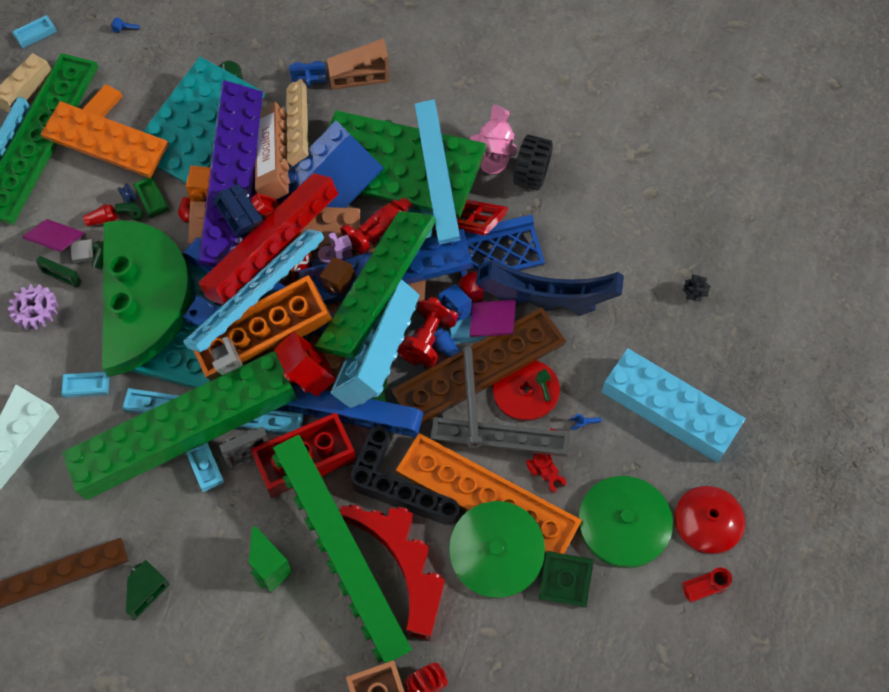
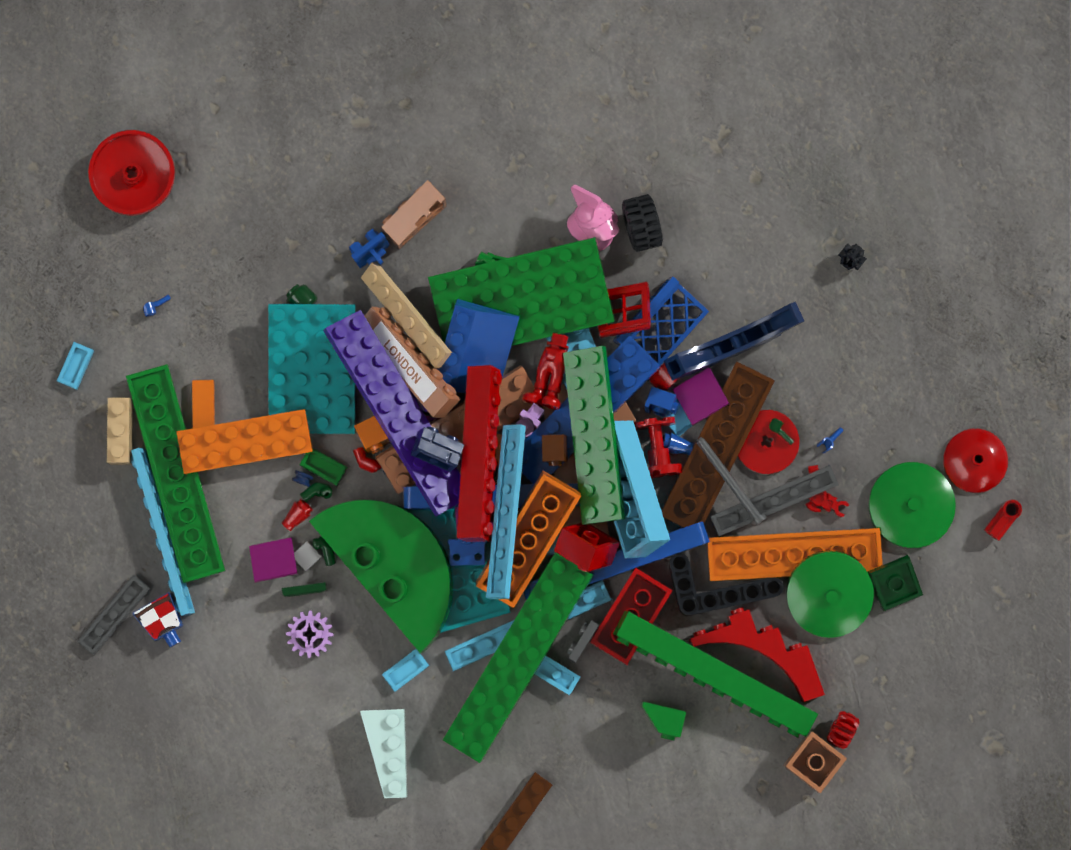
camera: 35 degrees left, 20 degrees up
(143, 588) = (583, 796): dark green slope -> none
(226, 357) = (523, 584): light grey panel -> none
(264, 204) = (452, 425): red tile -> none
(437, 172) = (571, 293): medium azure tile -> none
(672, 405) = (893, 381): medium azure brick -> none

